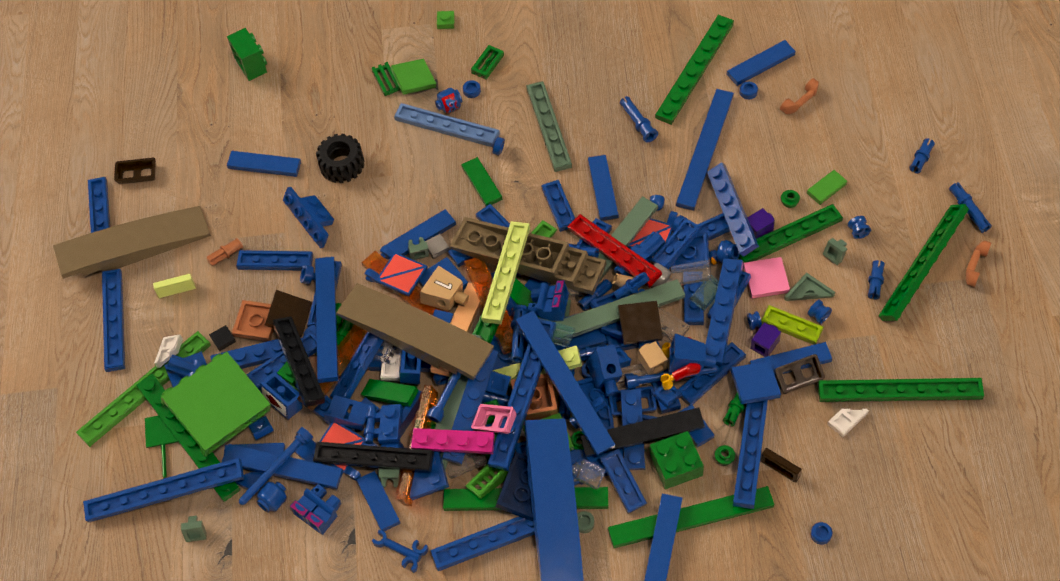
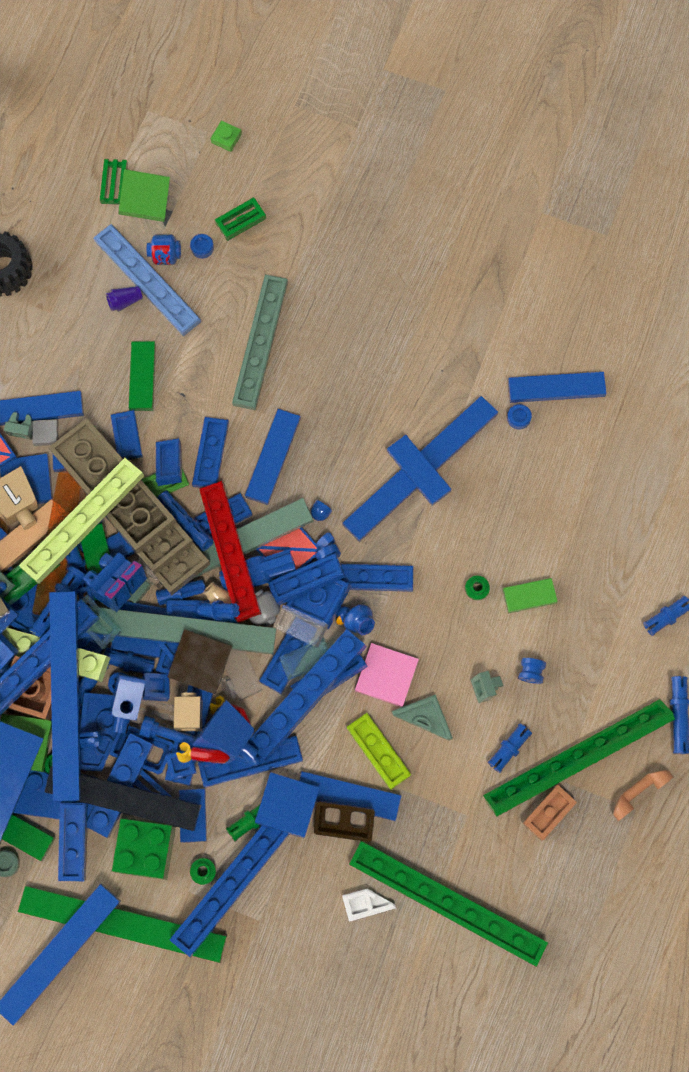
camera: 25 degrees right, 15 degrees up
(438, 141) = (123, 297): none -> dark purple cone
(498, 146) = (185, 340): blue tile -> none
(538, 223) = (168, 462): none -> blue tile
(588, 473) = (35, 813): clear bracket -> none
(641, 124) = (365, 398): blue pin -> none
(694, 69) = (473, 354): green plate -> none
(706, 147) = (419, 470): none -> blue tile
(732, 209) = (397, 570): blue plate -> none
(754, 320) = (337, 724): blue bush -> none
(761, 223) = (419, 604): dark purple brick -> none
(765, 339) = (335, 755): dark purple brick -> none
(781, 465) = (254, 920): dark brown tile -> none
(790, 107) = (552, 465): nougat bar -> none
(794, 232) = (447, 633): green tile -> none
(819, 311) = (417, 754): blue wheel -> none
(821, 533) = (251, 1025): blue tile -> none
(928, 303) = (549, 813): none -> nougat plate

